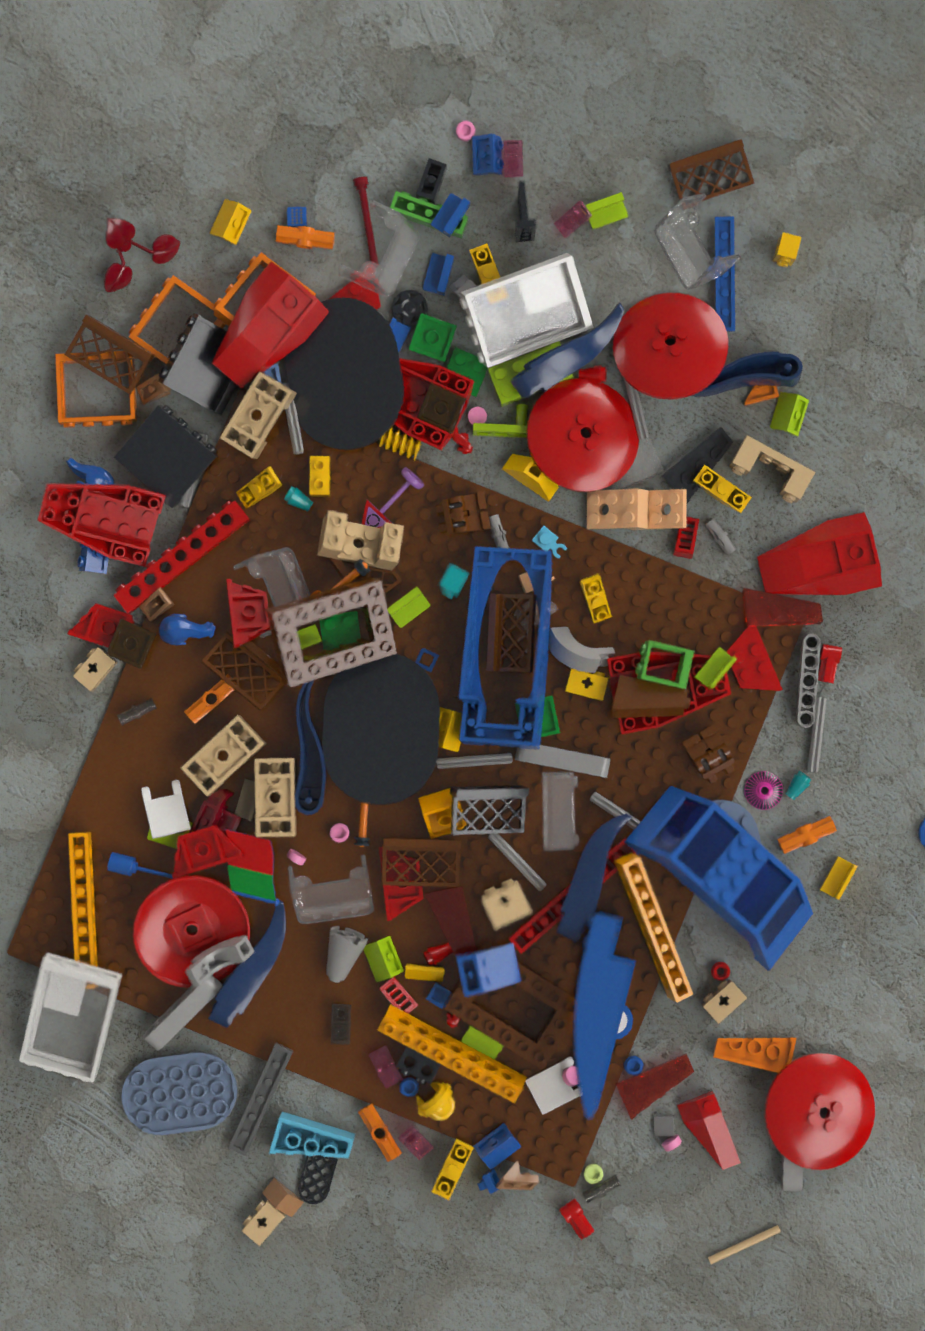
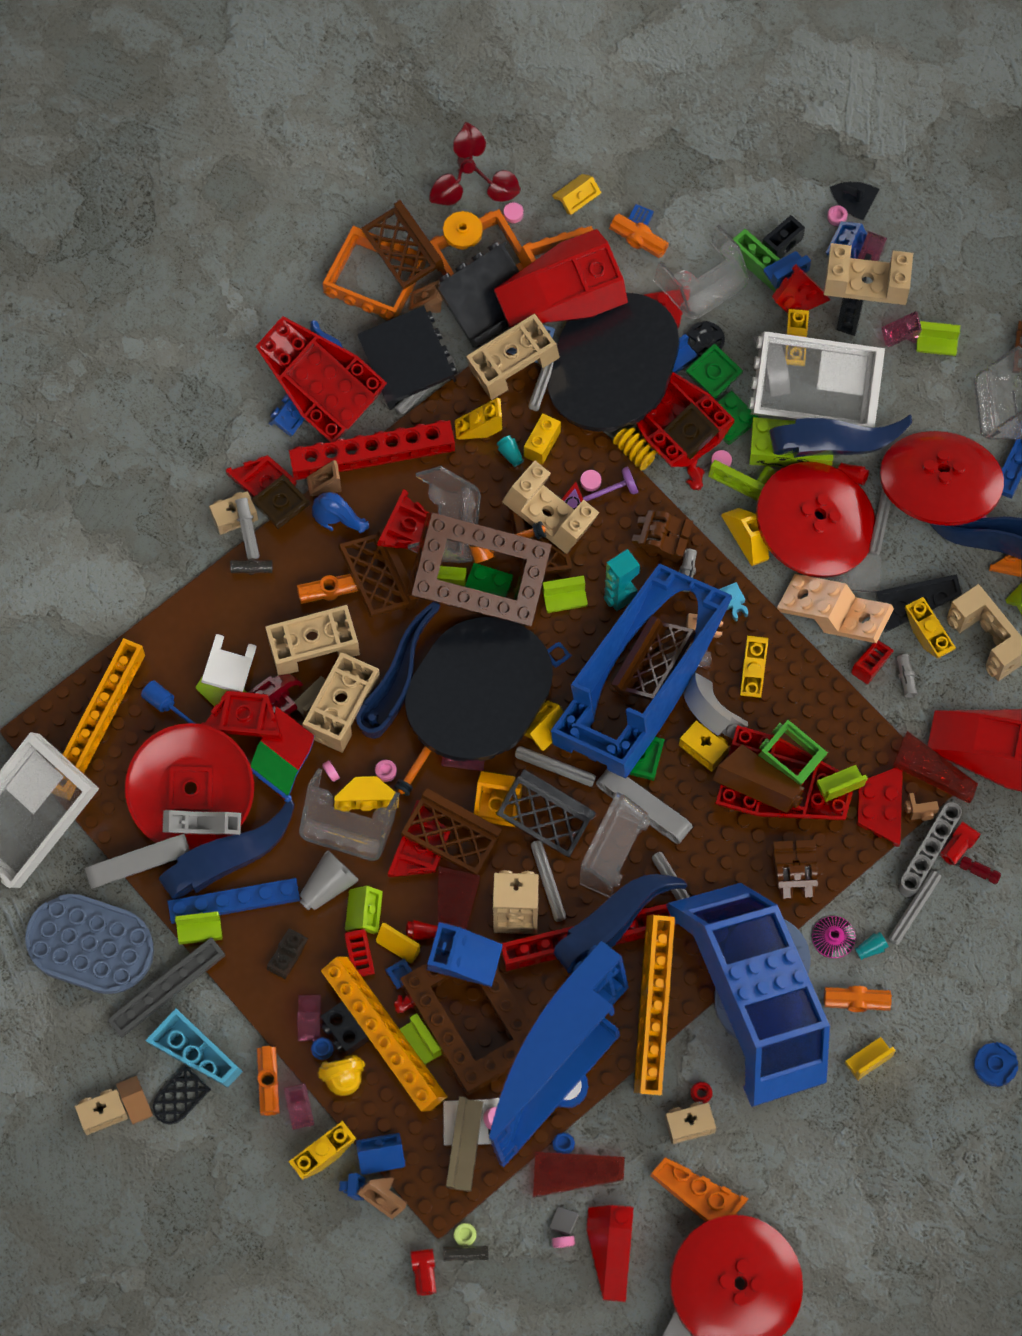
camera: 25 degrees right, 20 degrees down
(114, 679) = (247, 528): none -> light grey axle
(155, 322) = (462, 238): none -> light orange plate
(185, 267) = (513, 212): none -> bright pink tile
(261, 1040) = (198, 927): none -> lime panel
(275, 1002) = (237, 899): none -> blue plate
(335, 863) = (364, 794): none -> yellow slope
(361, 184) = (715, 216): dark red piece -> none
(378, 492) = (590, 480): none -> bright pink tile
(438, 273) = (749, 322): blue panel -> none
(472, 104) = (855, 197): none -> black shield
(473, 230) = (799, 292): none -> red wing
(551, 198) = (889, 282): none -> tan plate
(560, 1108) = (465, 1144): none -> dark tan fence
(790, 652) = (922, 811): none -> medium nougat bracket
(854, 676) = (980, 870): none -> dark red axle

